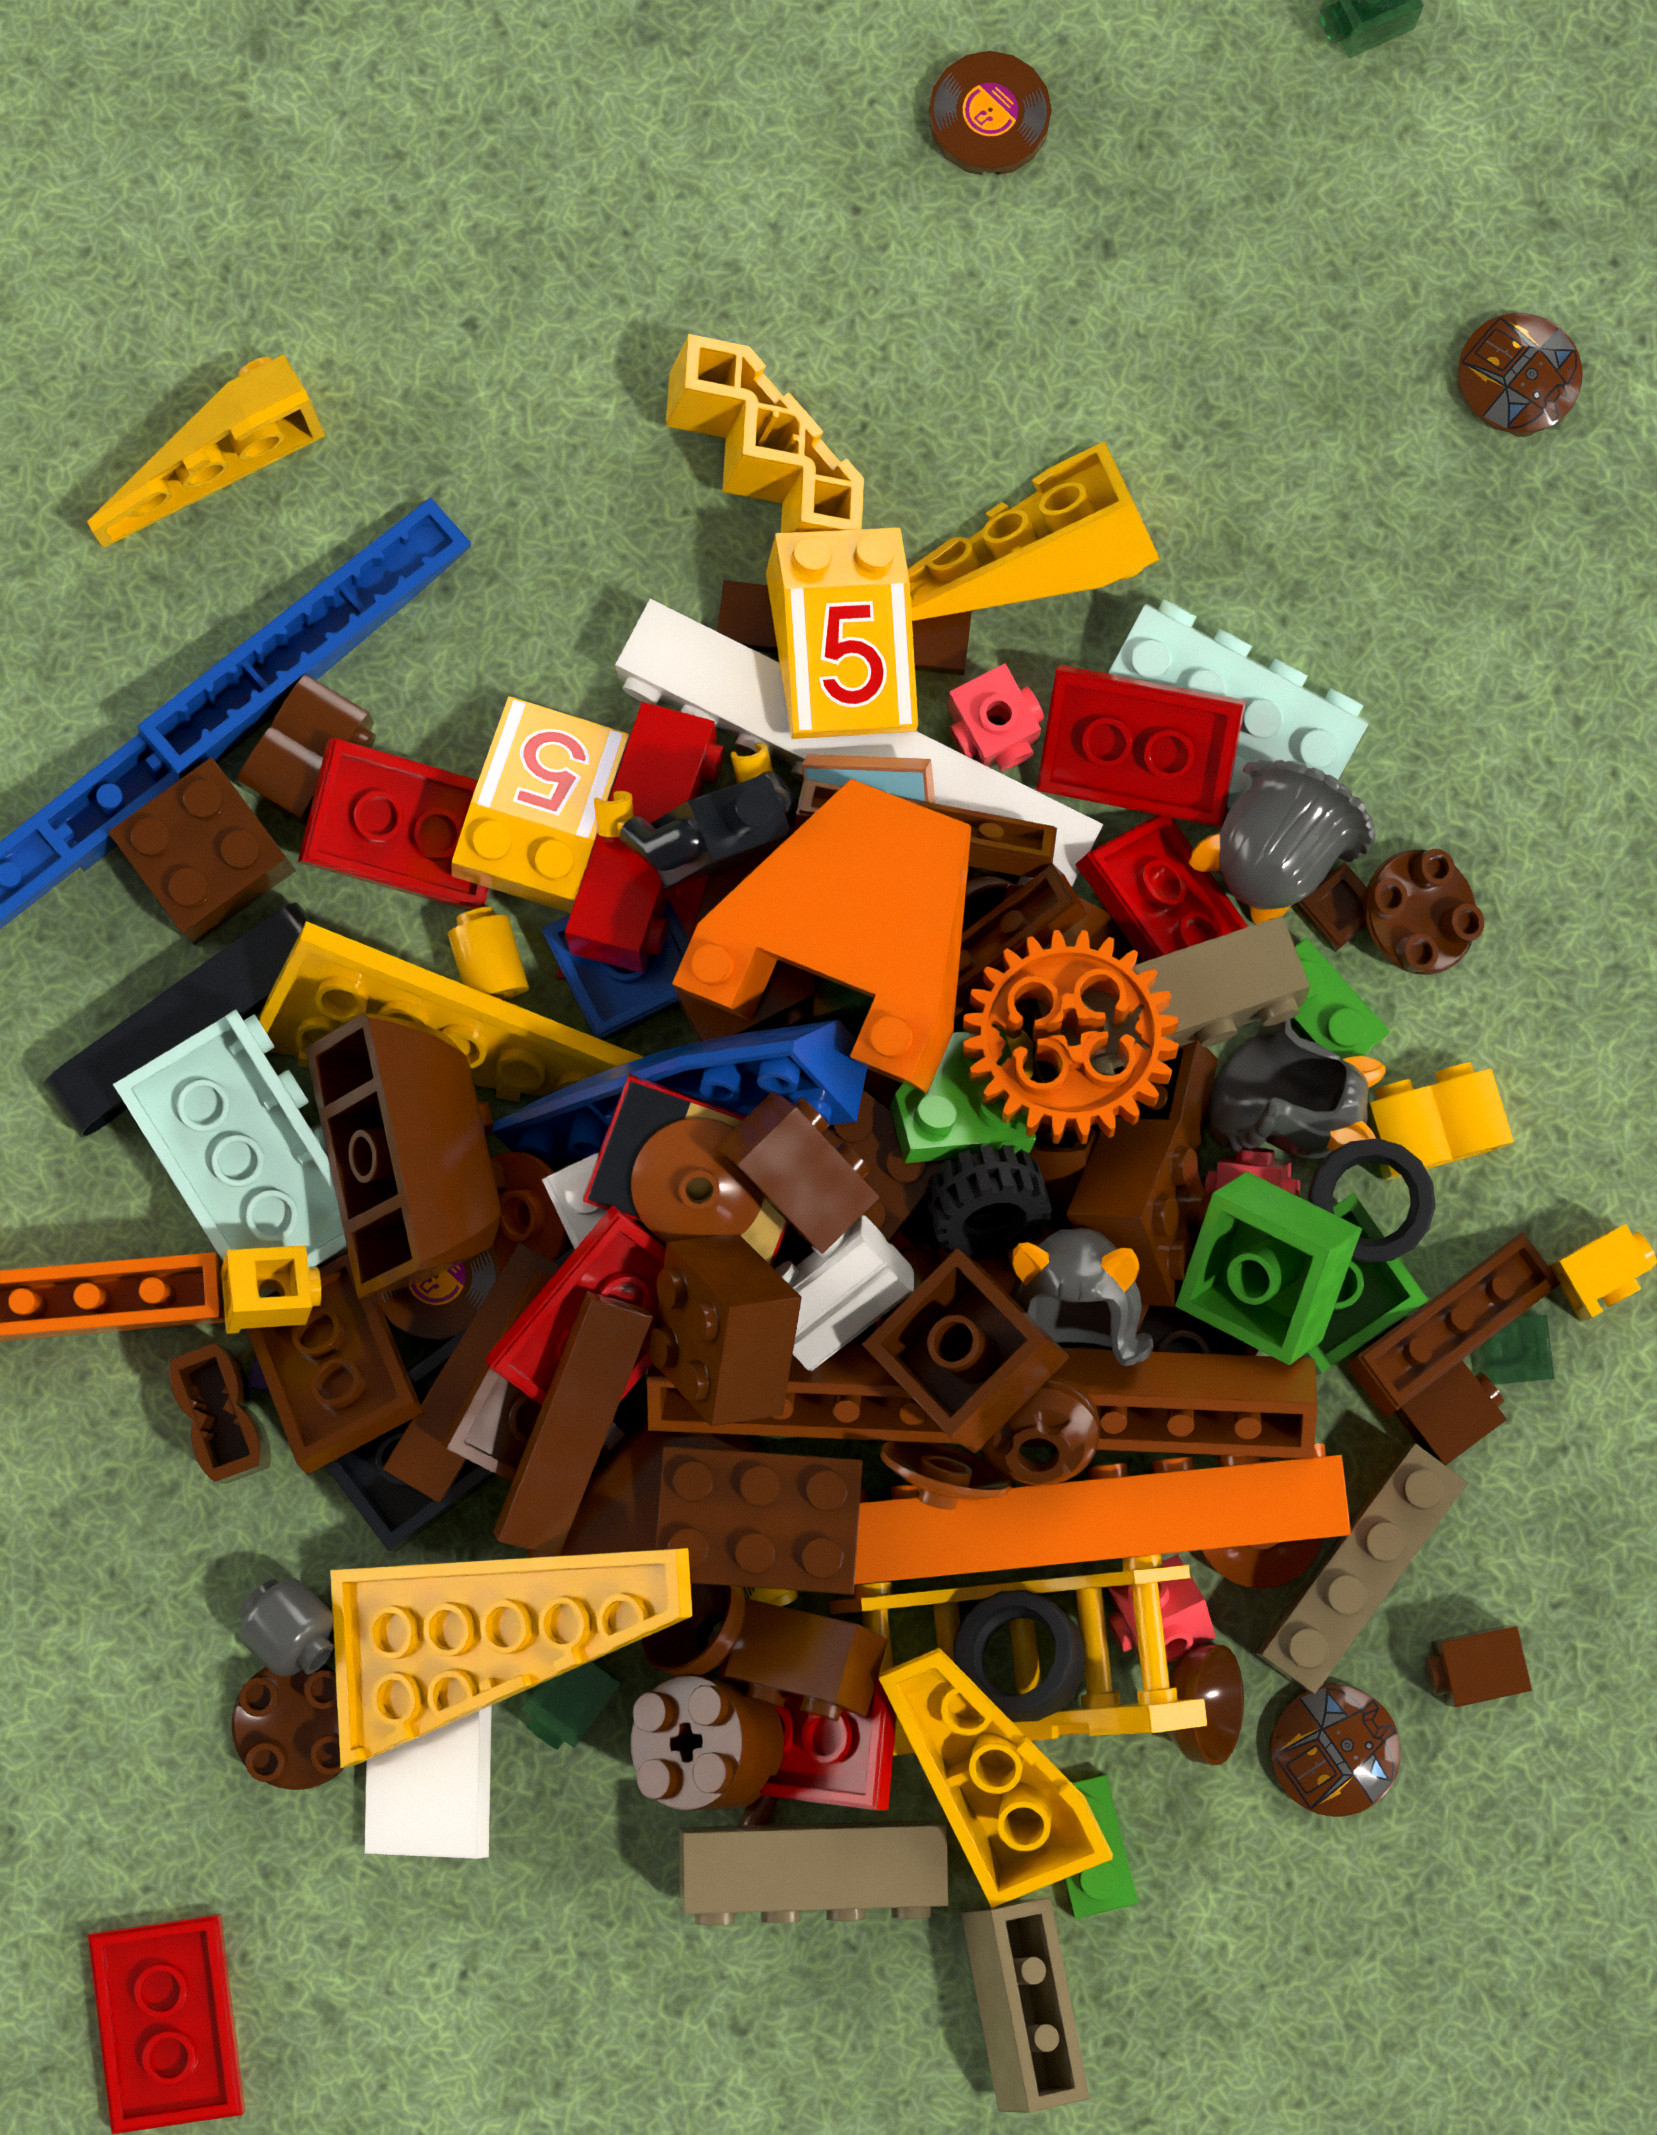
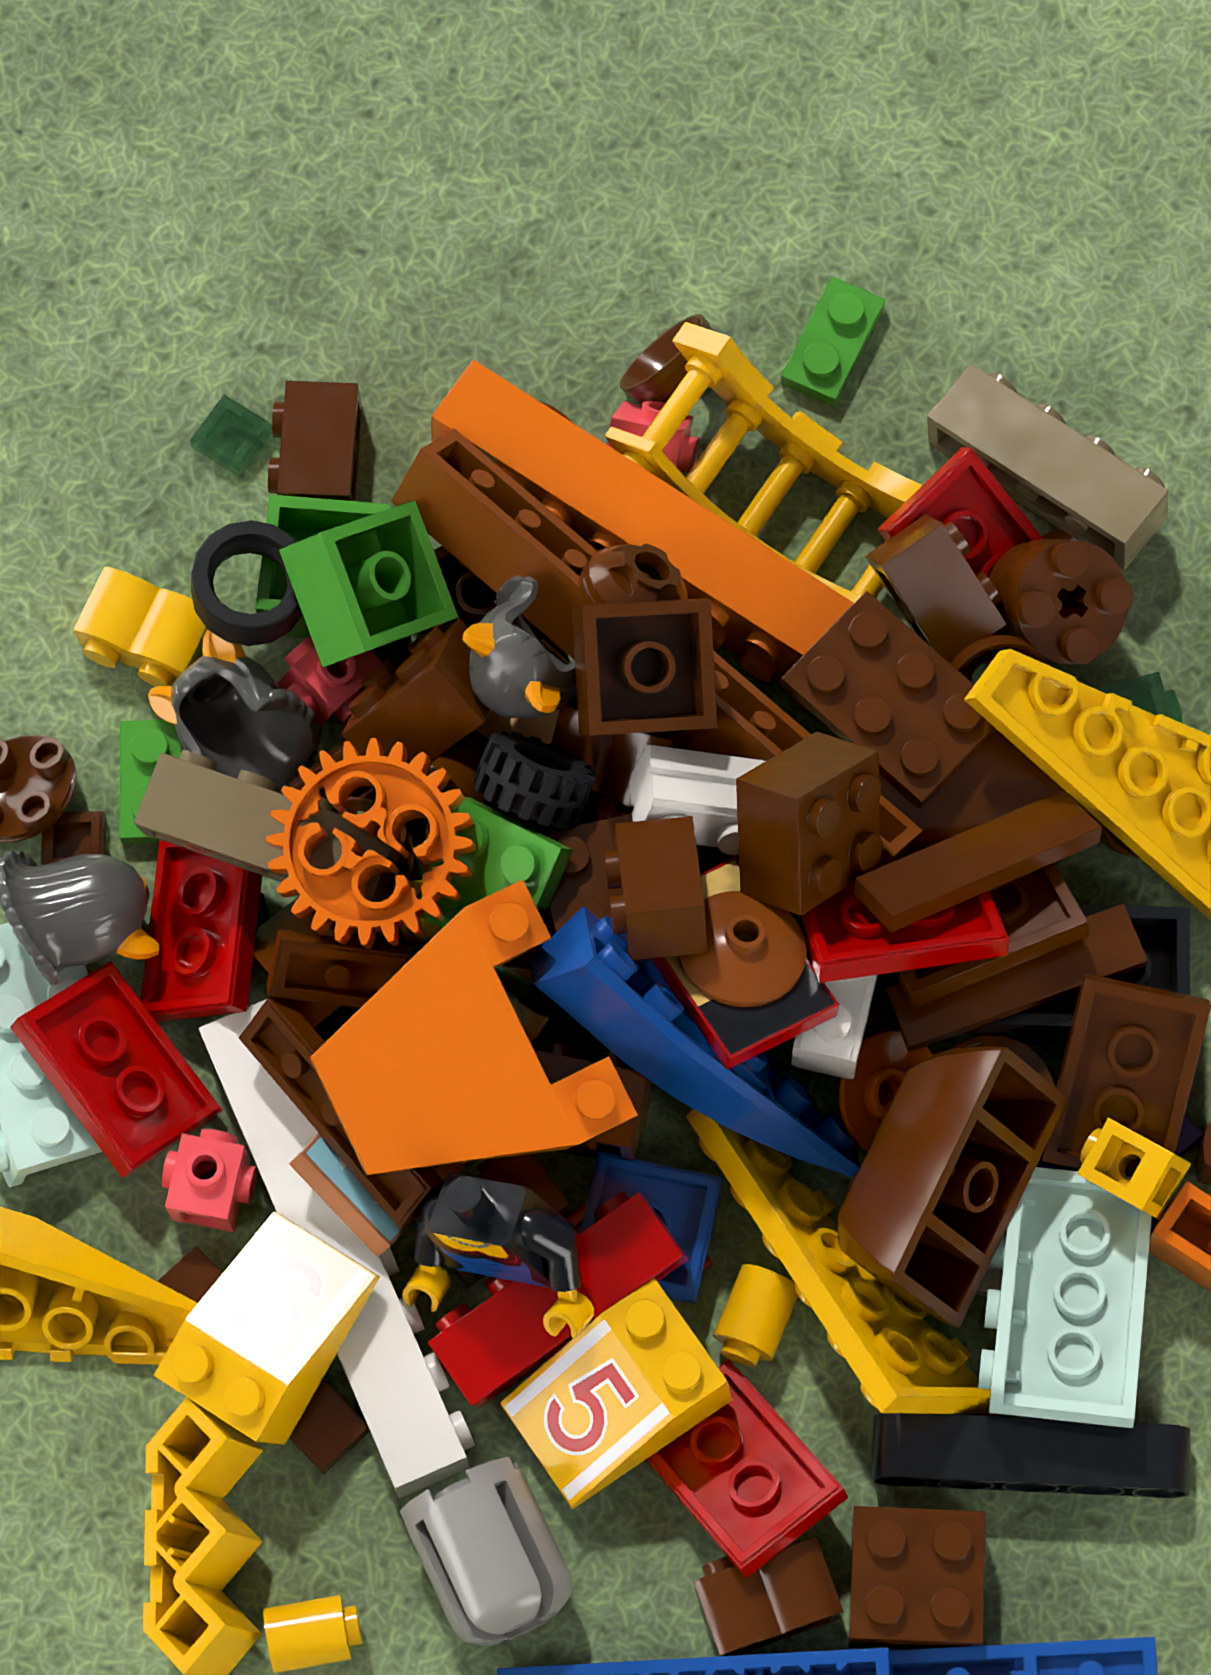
camera: 135 degrees left, 10 degrees down
(537, 606) = (489, 1554): none -> light grey cylinder
(630, 455) = (311, 1633): none -> yellow brick
(944, 1473) = (735, 619): dark orange dish -> none
(1000, 1793) = (871, 405): yellow wedge -> none
(1025, 2006) = (970, 263): dark tan brick -> none
(1065, 1672) = (822, 495): black tyre -> none
(1335, 1750) = (603, 272): reddish brown dish -> none
(1360, 1568) = (533, 352): dark tan brick -> none
(1453, 1324) = (254, 469): reddish brown tile -> none
(1478, 1666) = (453, 245): reddish brown brick -> none
(1604, 1270) = (122, 436): yellow brick -> none

